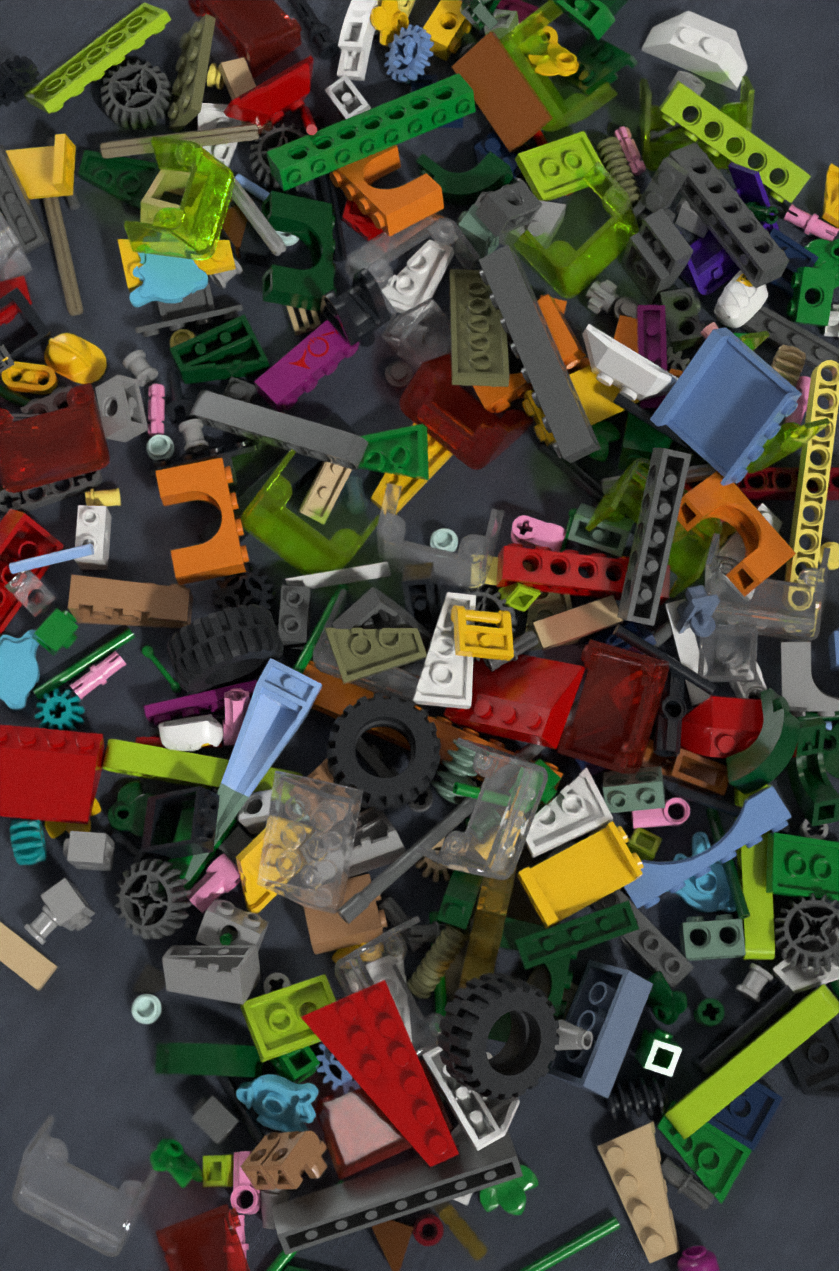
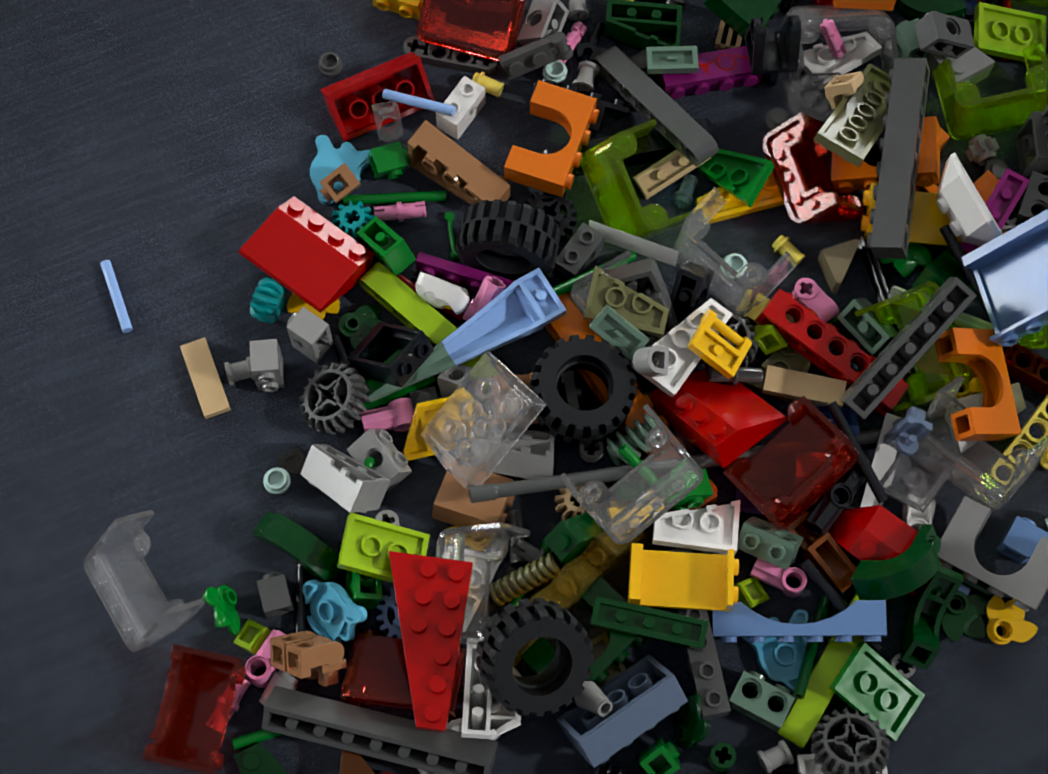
camera: 30 degrees right, 5 degrees down
(33, 677) = (343, 175): none -> medium nougat brick
(109, 719) = (386, 245): none -> green brick
(133, 443) = (536, 55): none -> dark grey plate
(267, 375) = (672, 60): none -> sand green plate
(386, 679) = (618, 331): none -> sand green plate
(405, 267) = (833, 38): none -> bright pink axle
(433, 689) = (652, 361): none -> light grey plate
(443, 311) = (842, 86): none -> tan bracket
(484, 498) = (783, 244): none -> light yellow pin
(535, 484) = (836, 261): none -> dark tan slope

